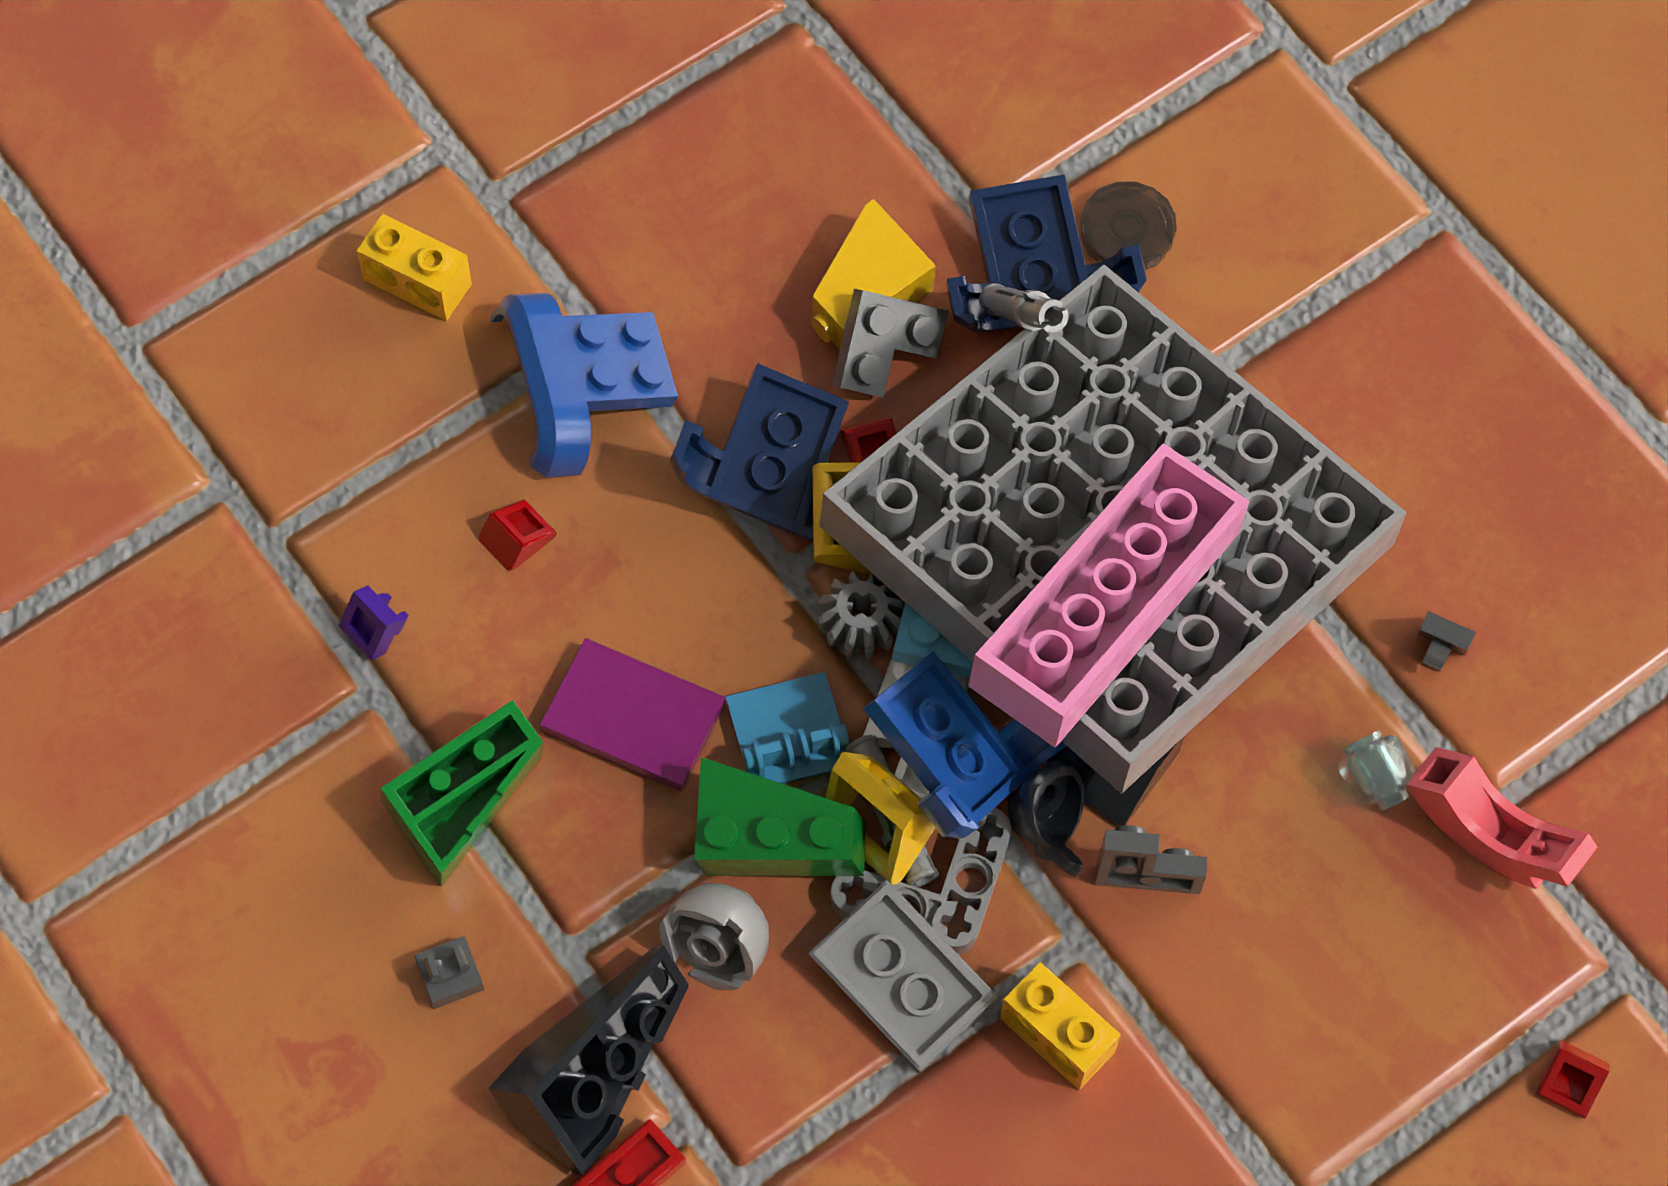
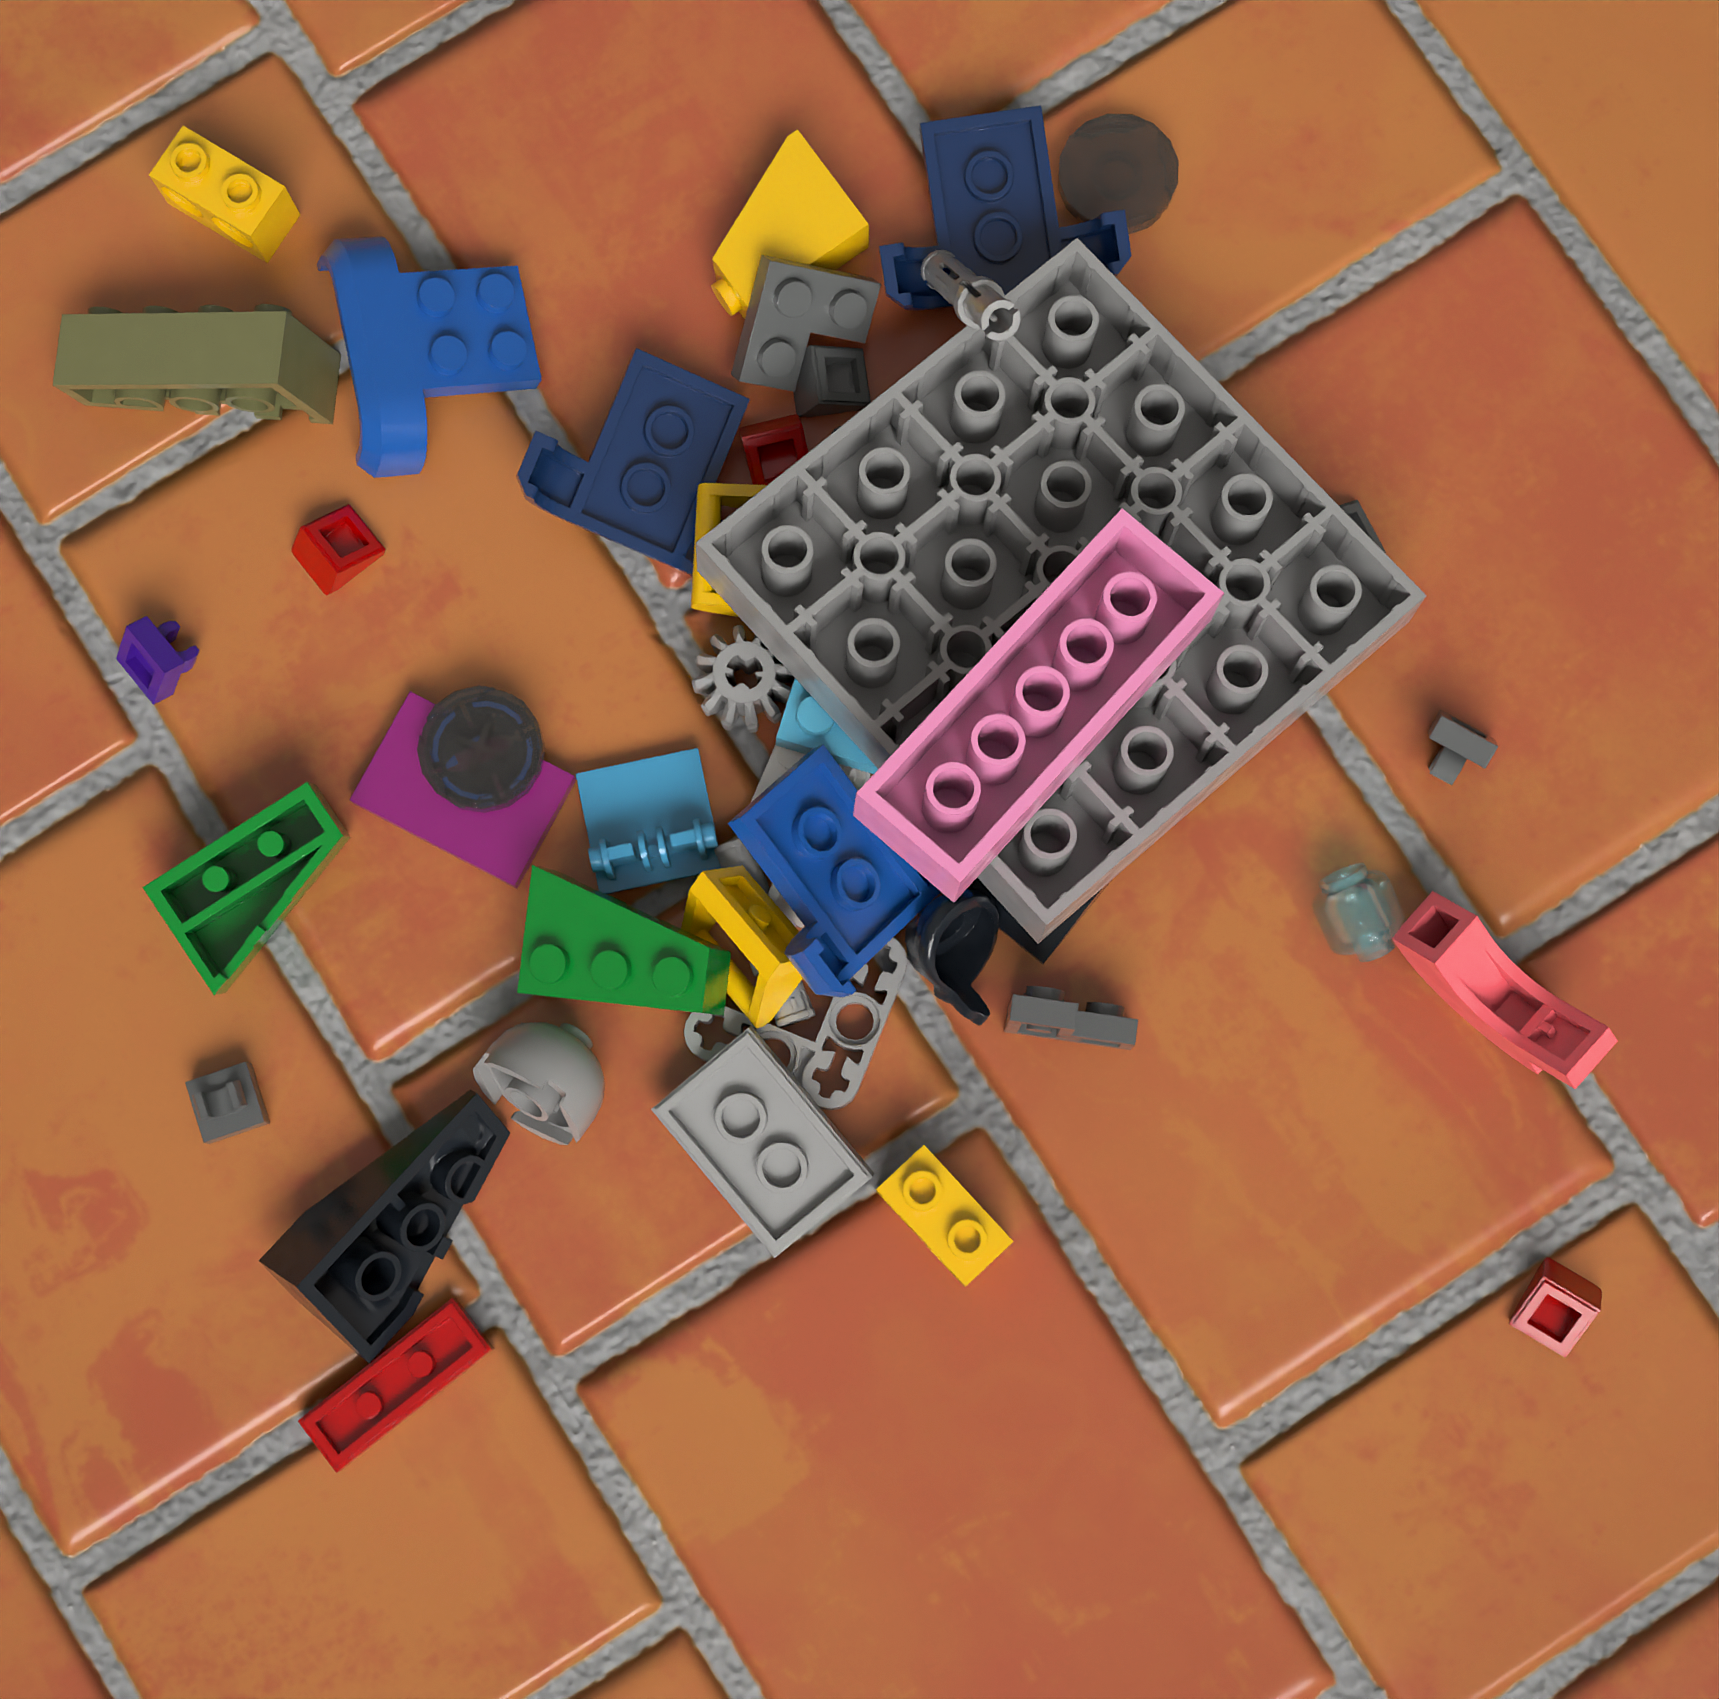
camera: 10 degrees right, 15 degrees up
(399, 391) = (197, 361): none -> olive wedge
(648, 678) = (481, 749): none -> clear smoke tile
(910, 388) = (831, 381): none -> dark grey slope

